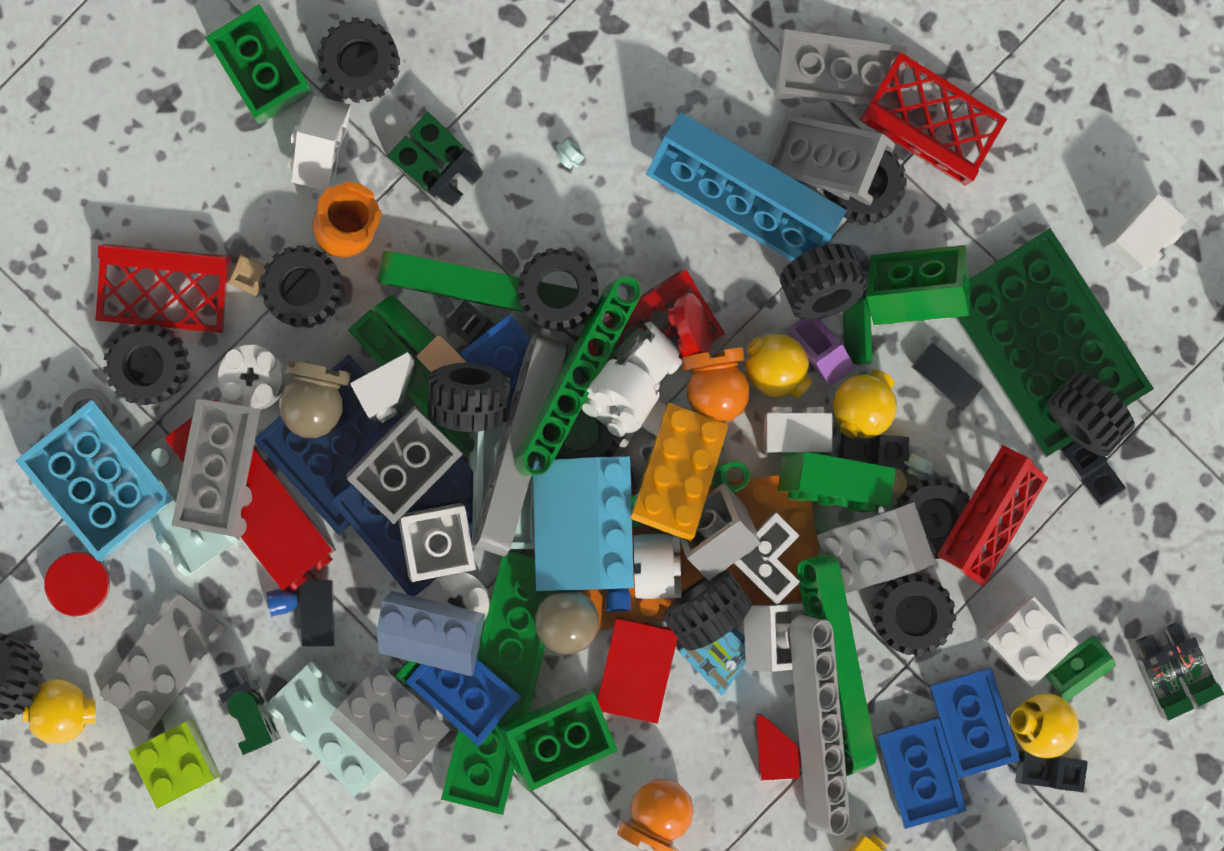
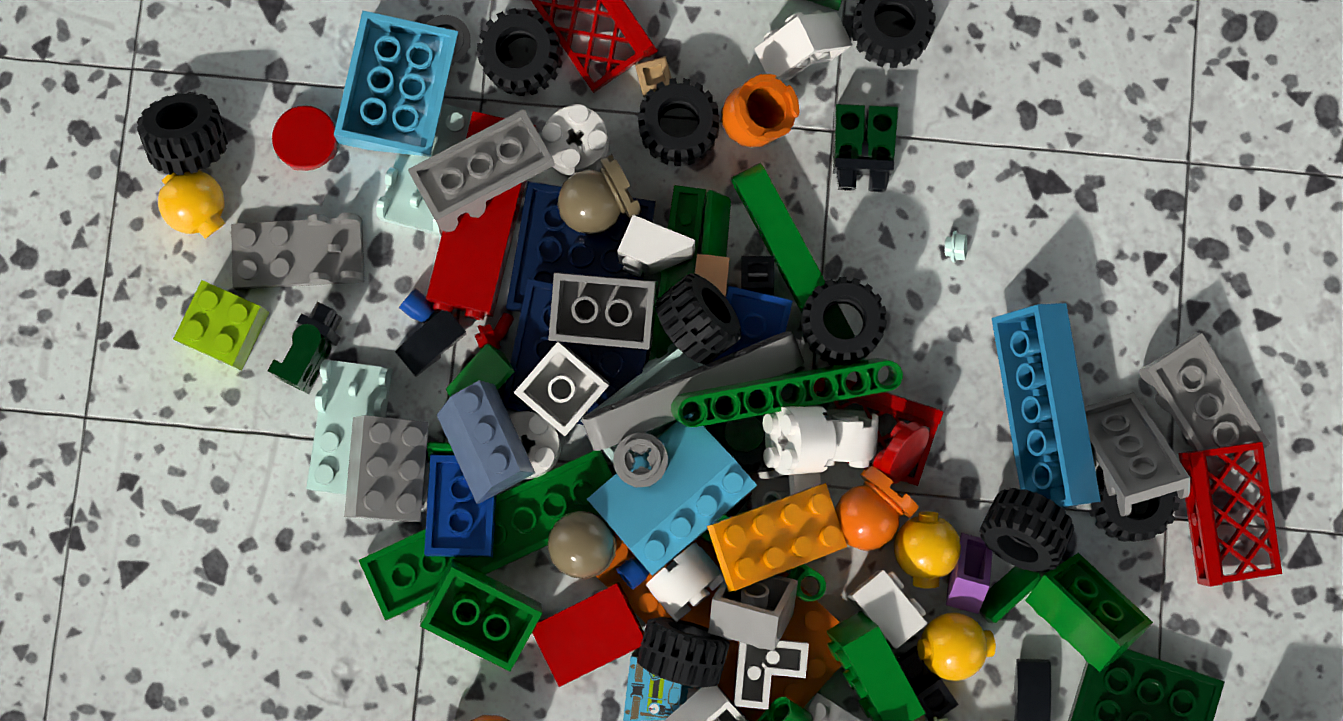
camera: 55 degrees right, 5 degrees down
(350, 566) = (490, 336): none -> red plate
(373, 585) = (487, 366): none -> green slope
(531, 540) = (624, 460): none -> light grey gear

